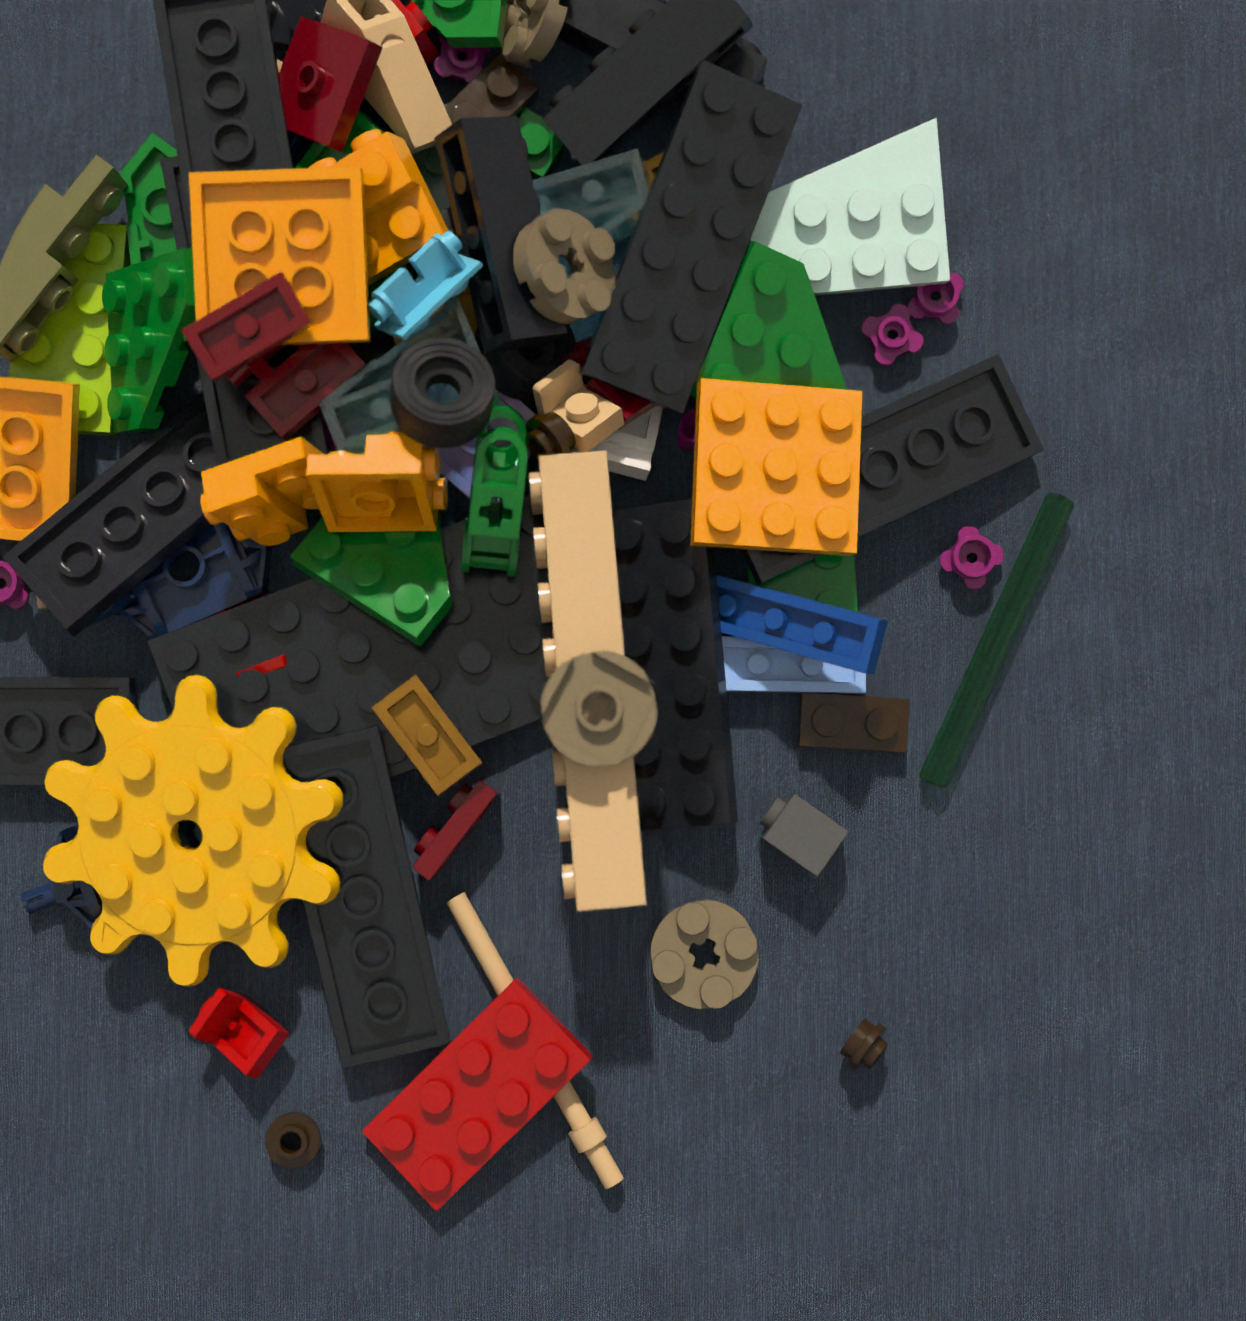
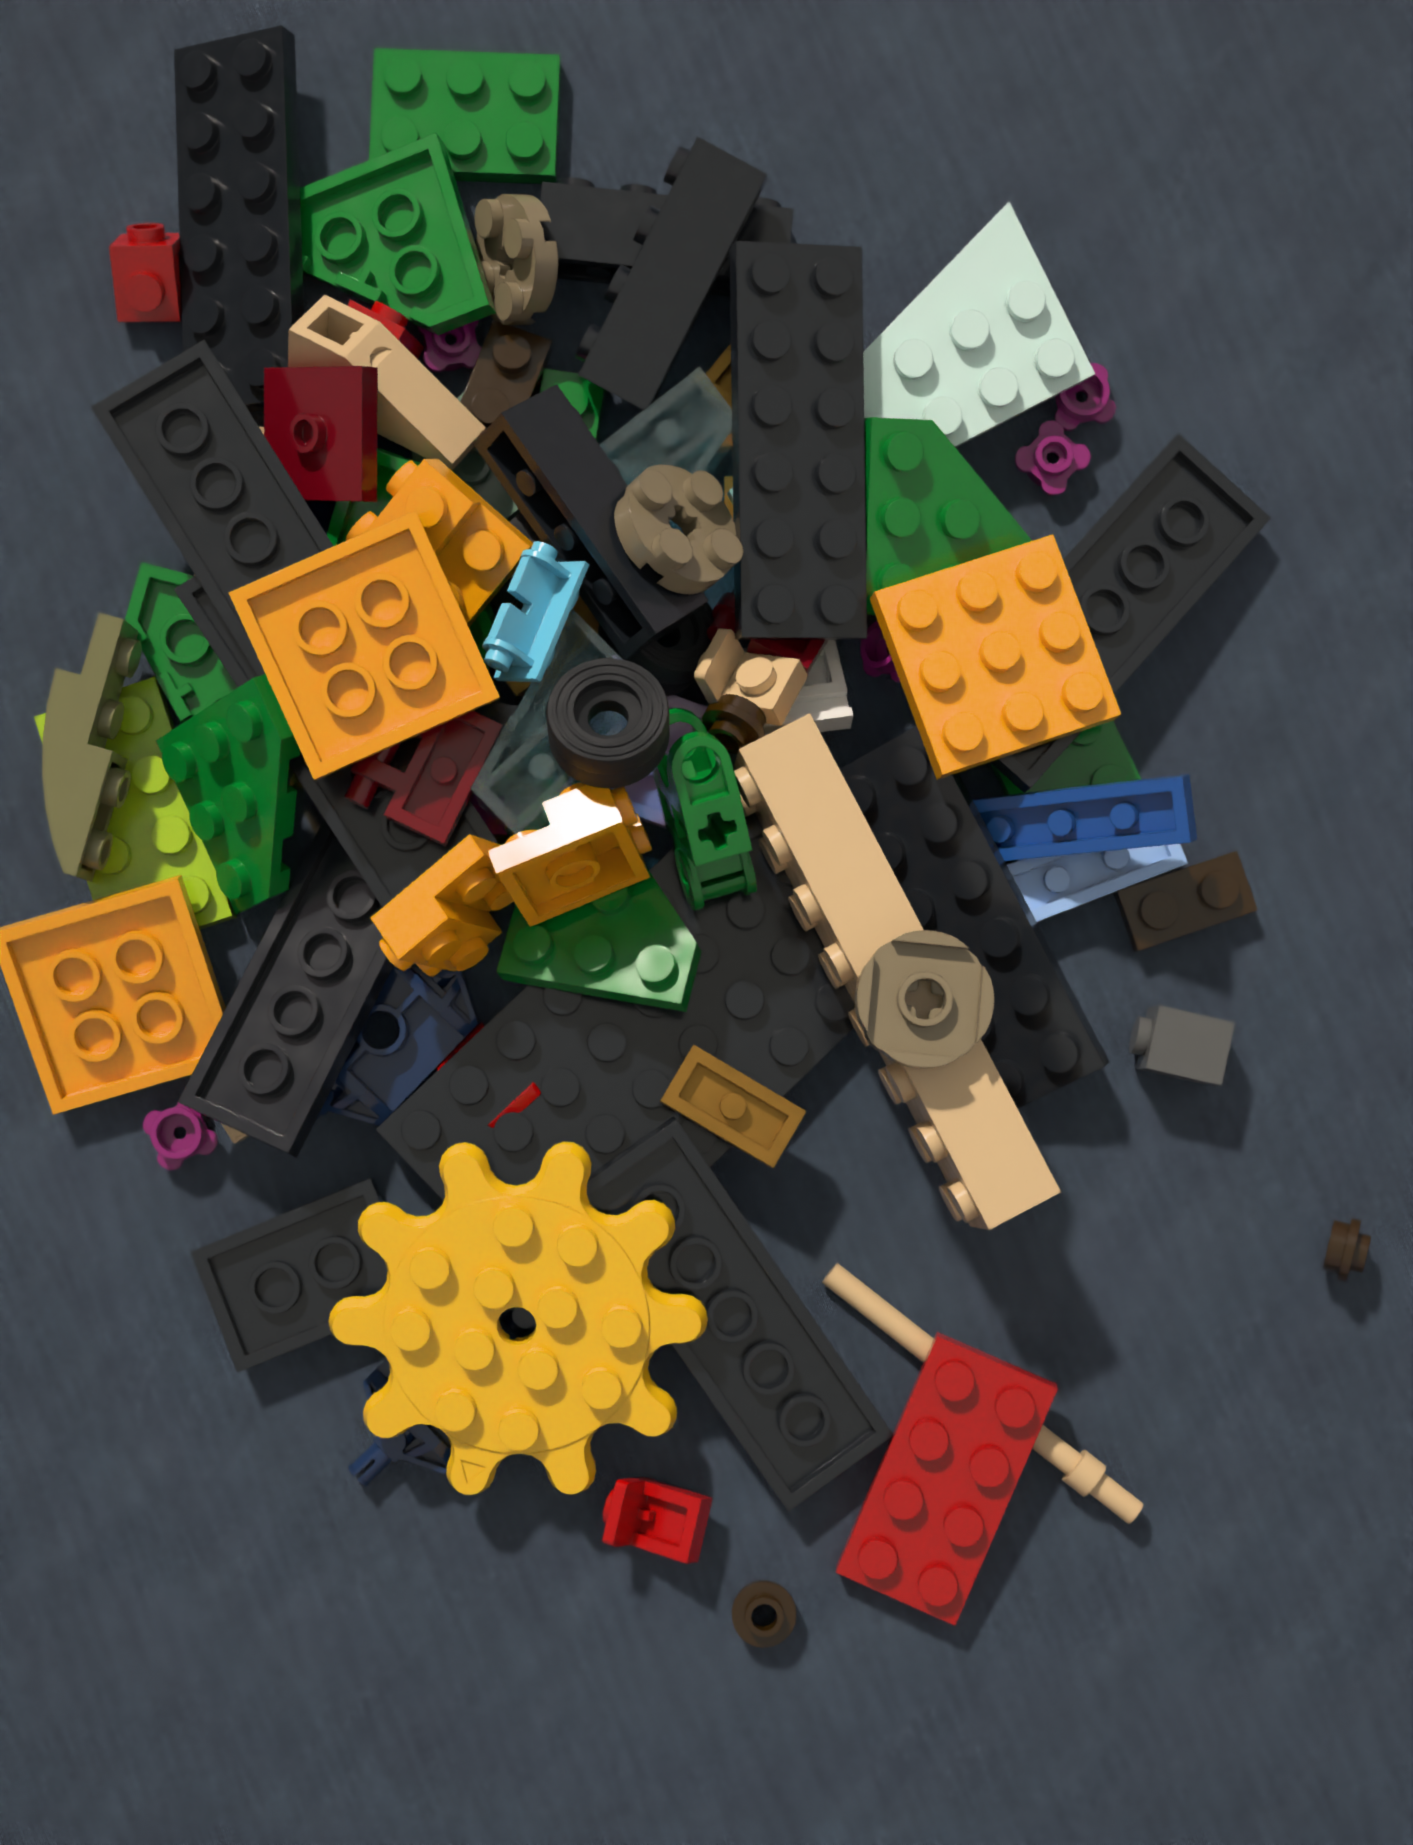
camera: 30 degrees left, 0 degrees up
(247, 327) = (366, 737): dark red plate -> none
(439, 845) = (791, 1223): dark red plate -> none
(734, 944) = (1155, 1248): dark tan plate -> none
(986, 554) = (1255, 658): magenta plate -> none
(996, 640) = (1304, 747): clear green axle -> none

